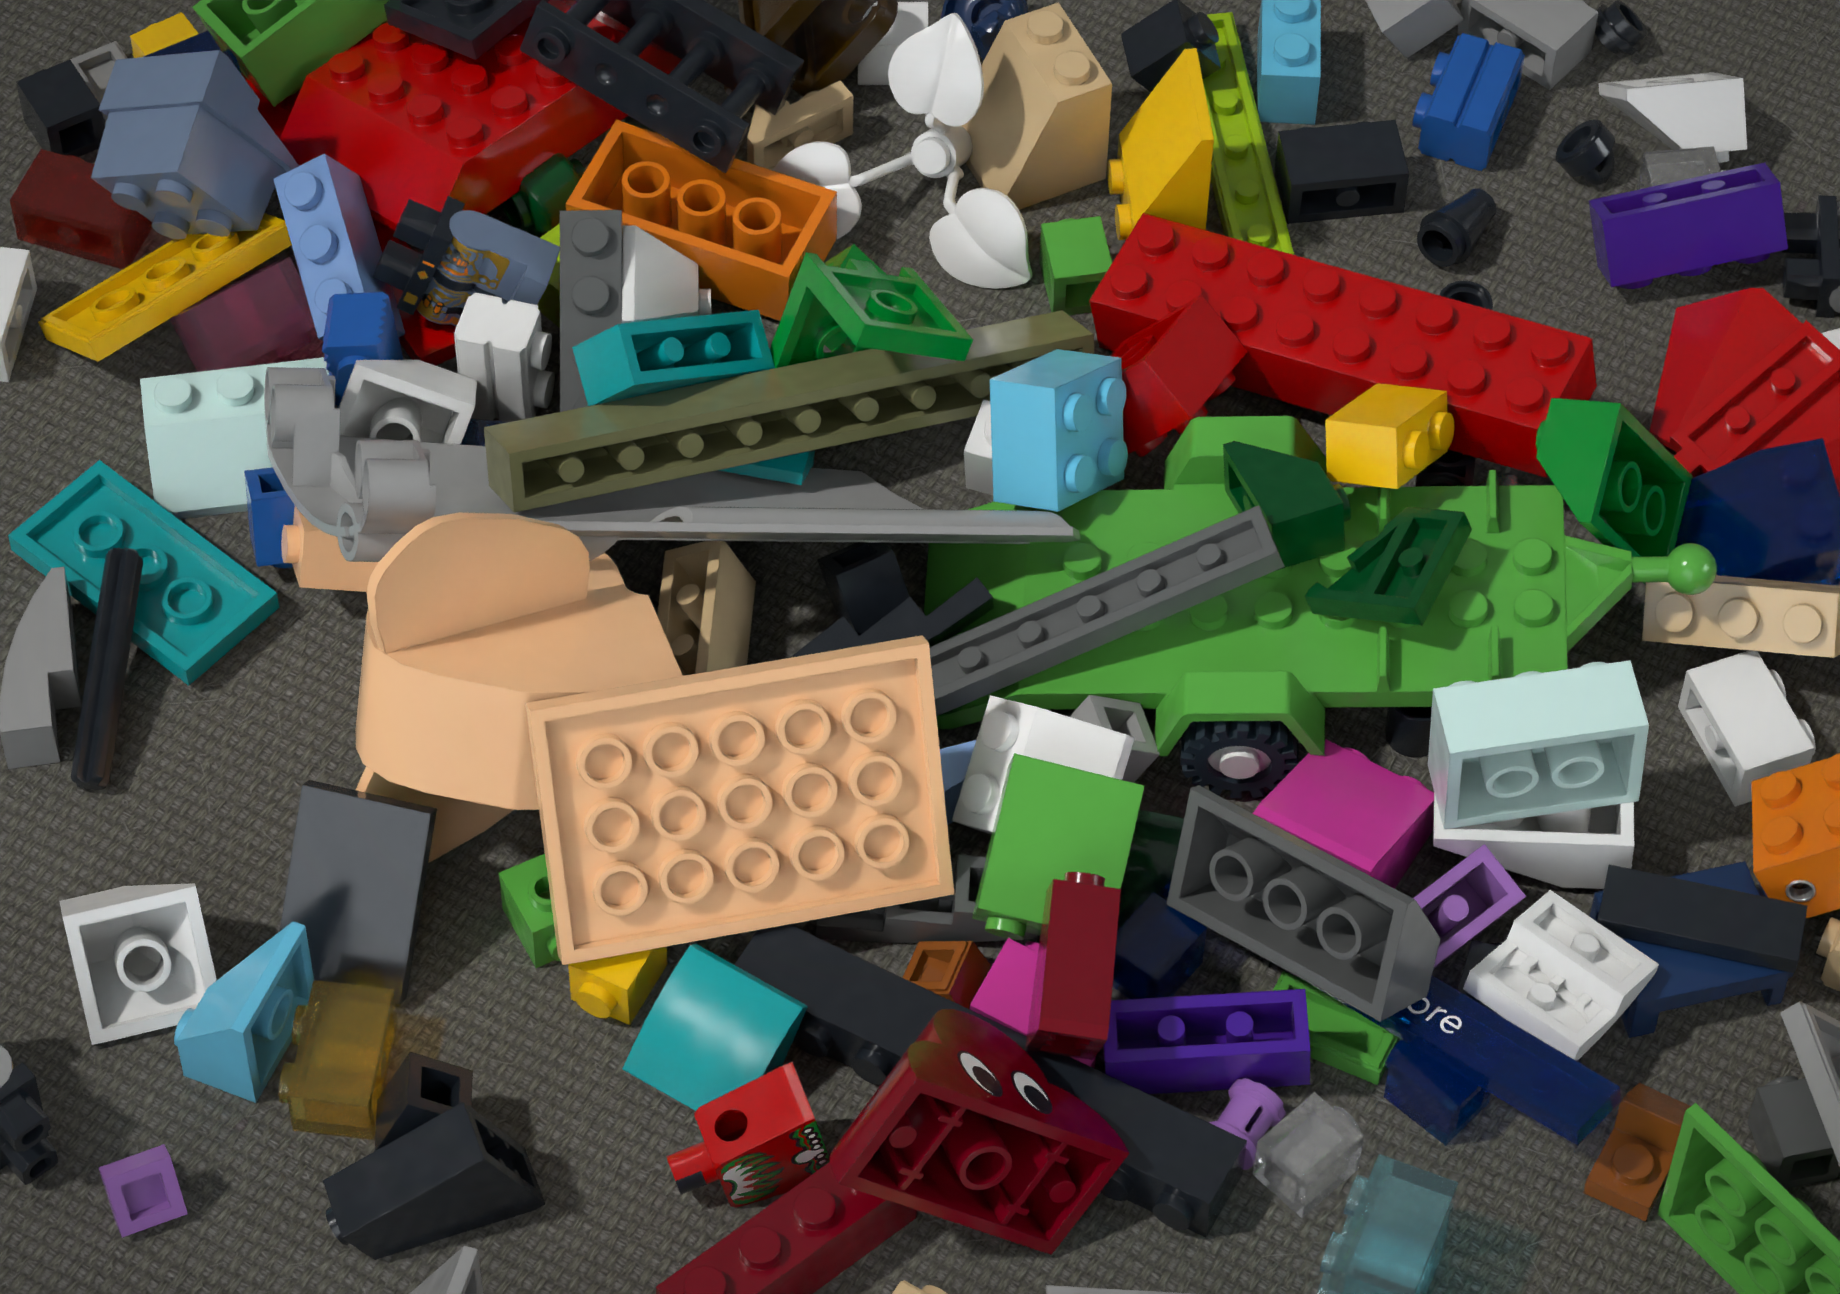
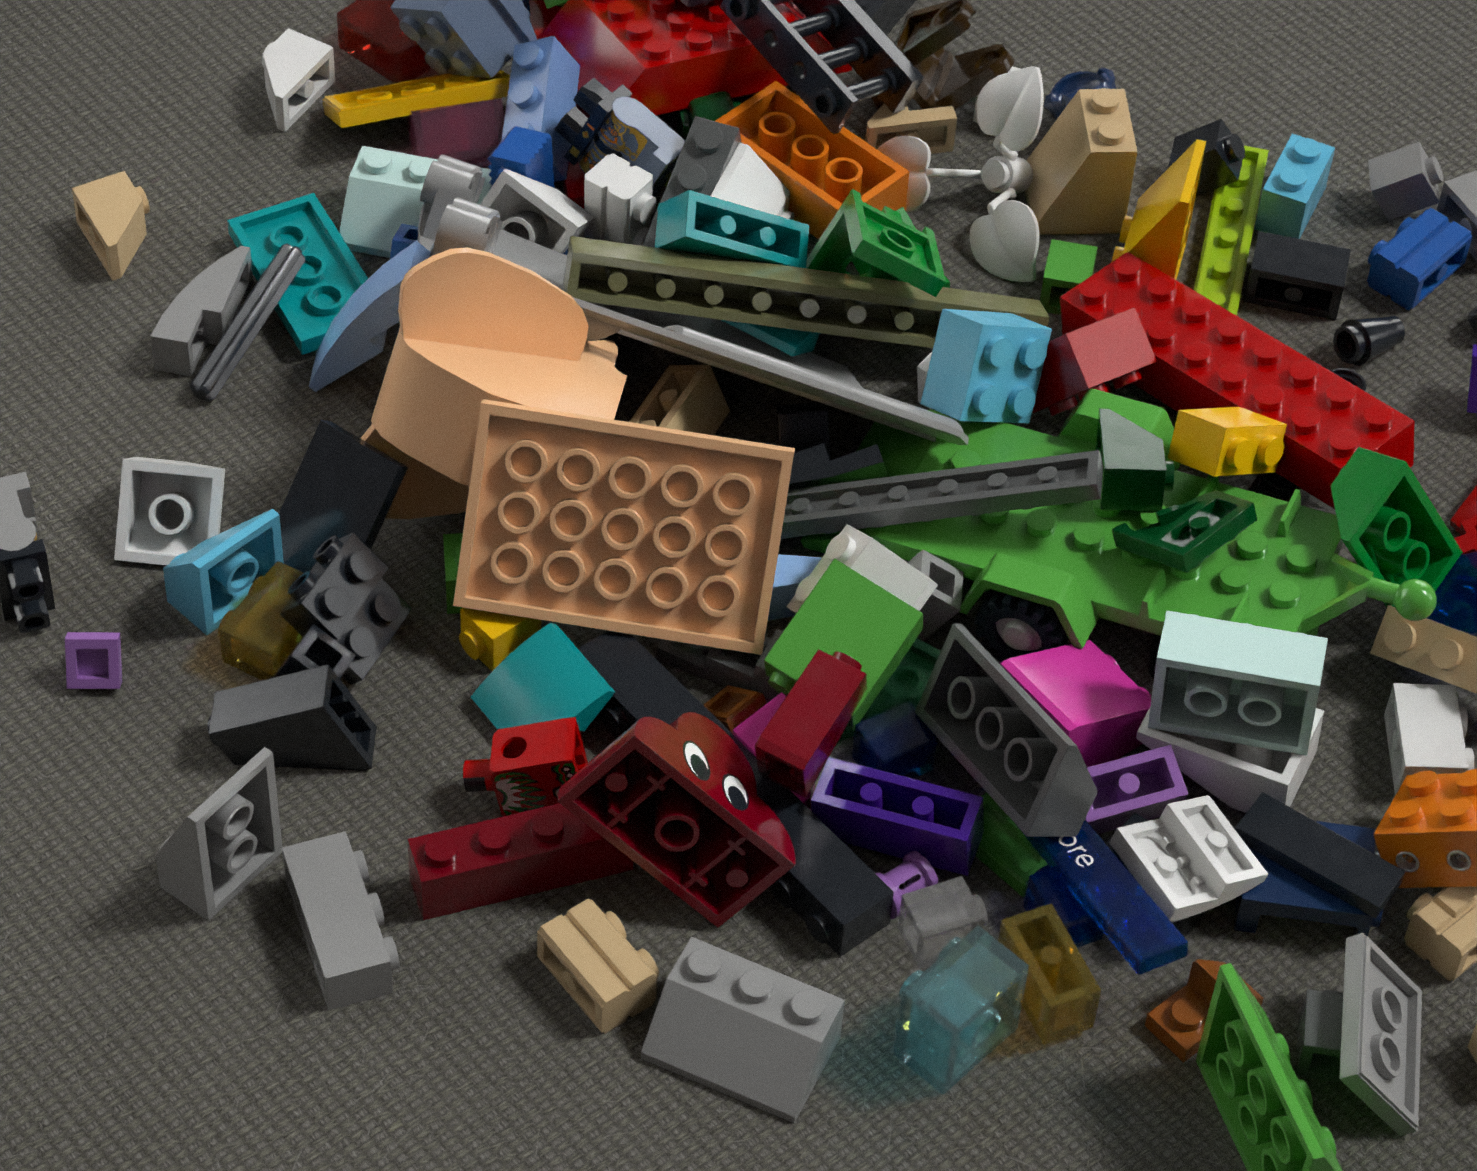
camera: 20 degrees right, 5 degrees down
(275, 616) = (363, 321): none -> light blue slope
(424, 1001) = (347, 602): none -> black plate
(1493, 1187) = (1059, 986): none -> clear yellow brick

